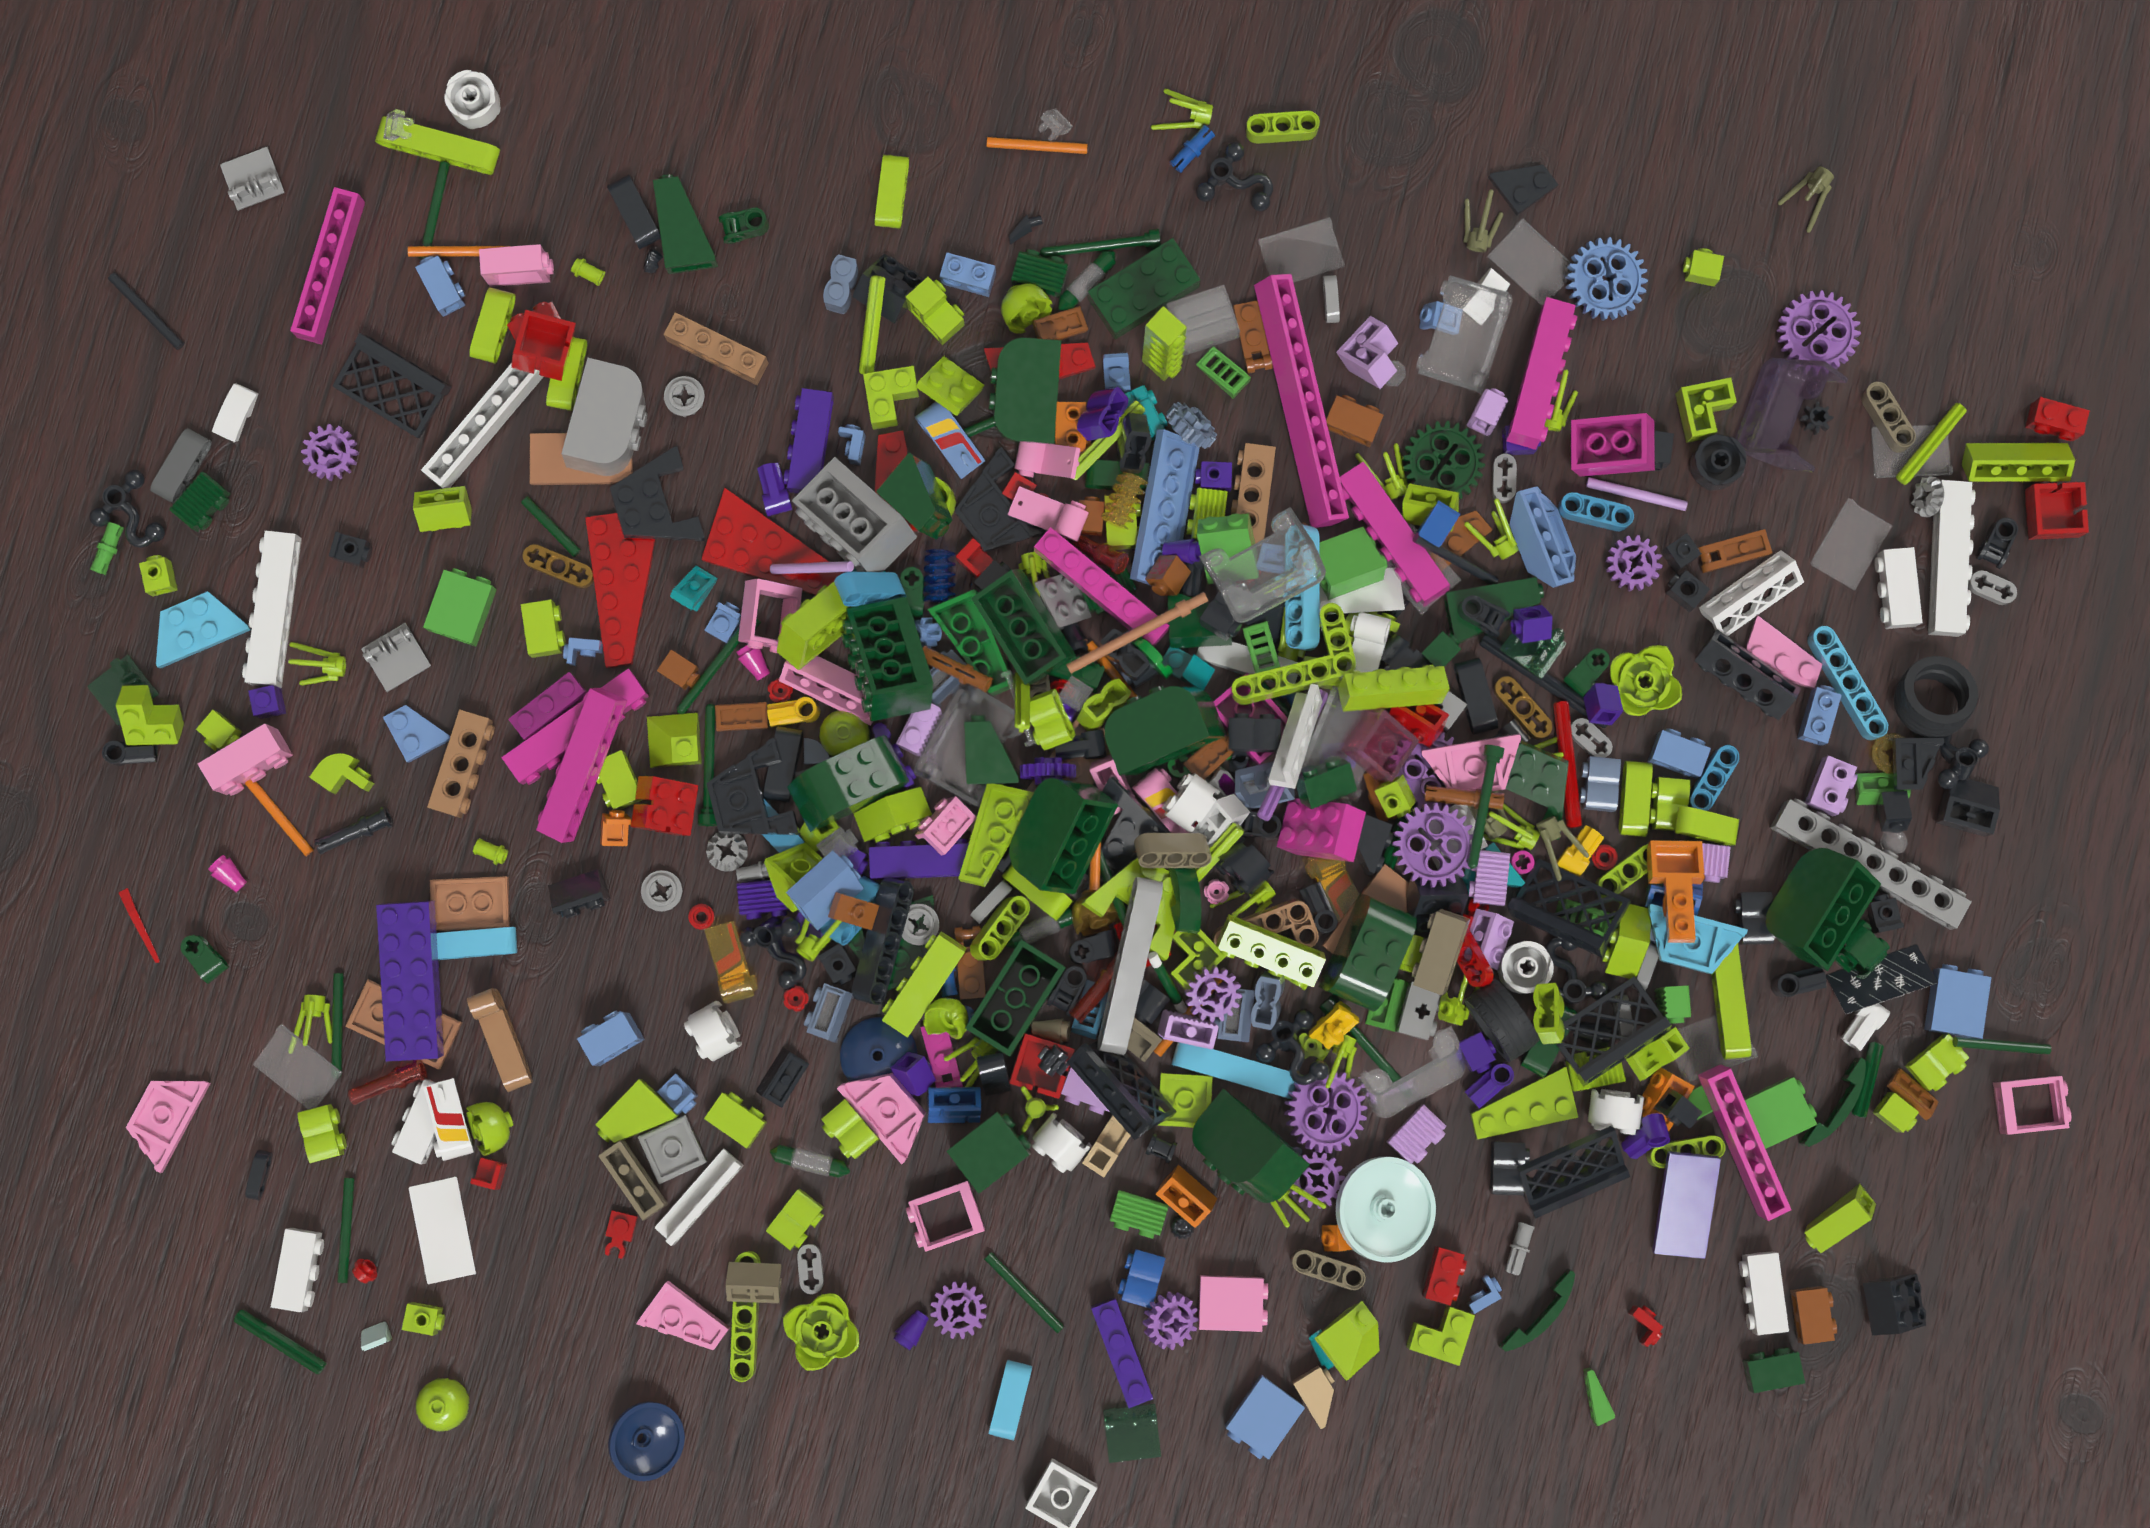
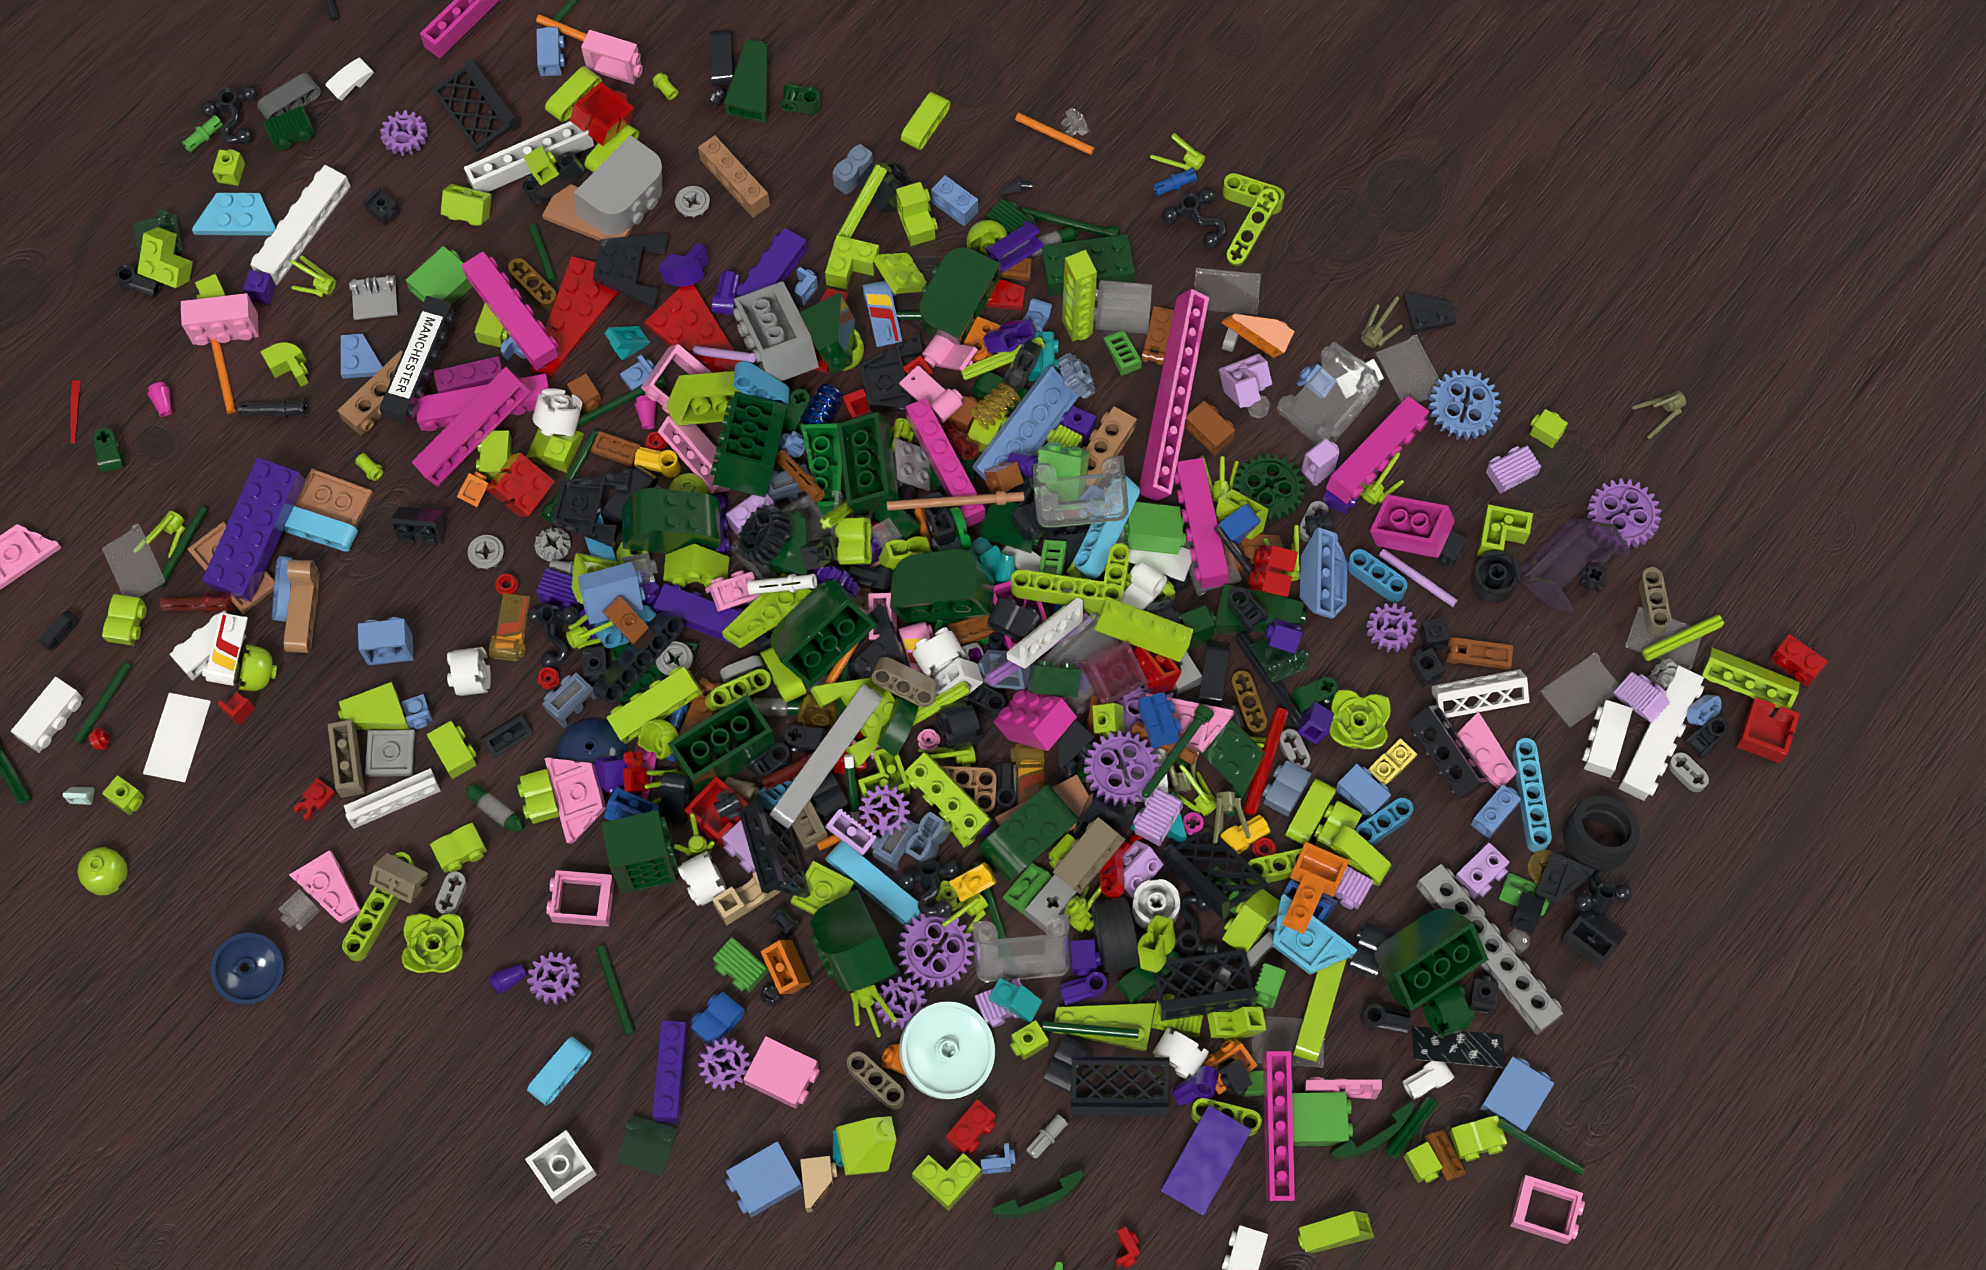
camera: 25 degrees right, 15 degrees down
(470, 1028) = (281, 590): none -> medium blue beam
(486, 716) = (417, 360): none -> black brick
(506, 432) = (541, 165): none -> lime brick
(532, 432) = (569, 171): none -> black beam
(556, 616) = (510, 311): none -> dark pink brick
(663, 708) = (557, 412): none -> white brick
(665, 1357) = (298, 910): none -> clear brick
(717, 483) = (685, 270): none -> dark purple brick
(941, 1067) = (634, 776): none -> red plate
(956, 759) = (763, 535): none -> black gear
(1005, 796) = (806, 581): none -> white pin
(1020, 752) = (818, 553): none -> black brick
(1061, 307) = (1015, 246): none -> dark purple window
(1214, 676) = (1005, 569): none -> teal cone
(1300, 169) = (1254, 228): none -> lime beam
(1372, 290) = (1265, 333): none -> slope
(1431, 1130) = (1015, 999): none -> teal slope
(1451, 779) = (1158, 720): none -> blue brick
(1459, 1161) = (1028, 1040): none -> lime brick
(1484, 555) = (1267, 570): none -> red piece
(1515, 482) = (1322, 521): none -> black wheel
(1516, 1124) = (1090, 1029): none -> dark green bar
(1686, 330) = (1513, 468): none -> lavender brick
(1693, 708) = (1392, 762): none -> light yellow slope
(1784, 1070) = (1354, 1088): none -> bright pink wing
(1918, 531) = (1642, 697): none -> lavender brick
(1984, 515) = (1704, 709): none -> medium blue beam

